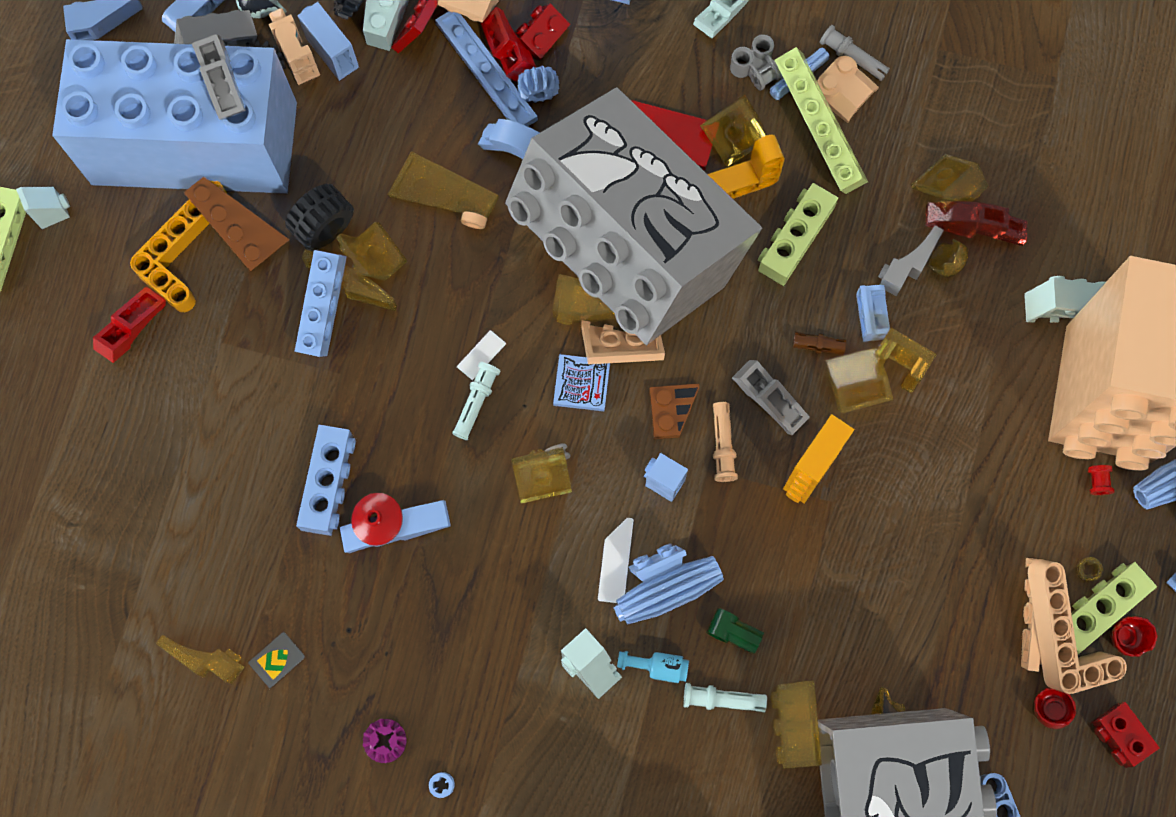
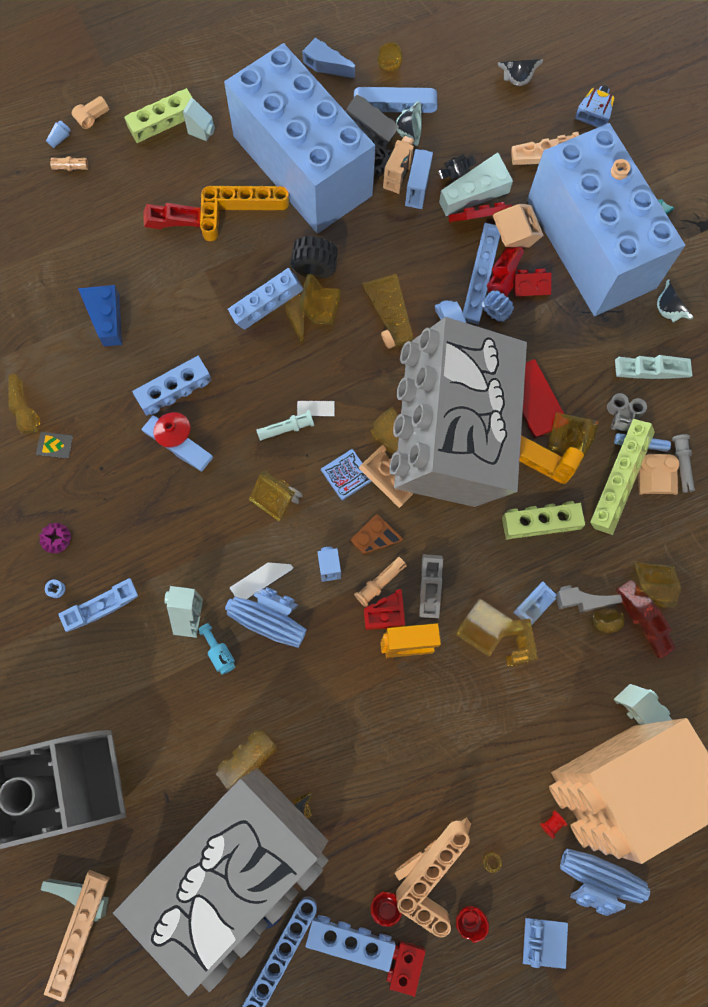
camera: 45 degrees right, 0 degrees up
(174, 484) = (104, 311): none -> blue wedge
(218, 76) = (328, 128): light grey slope -> none
(239, 228) = (273, 227): dark orange wing -> none
(502, 751) = (99, 606): none -> light blue slope
(711, 698) = (225, 698): light aqua pin -> none
(728, 628) = (273, 674): dark green piece -> none
(760, 464) = (385, 613): none -> red wing
(819, 343) = (488, 587): reddish brown pin -> none
(1096, 751) = (380, 959): none -> light blue brick
(1136, 587) = (504, 902): yellowish green brick -> none

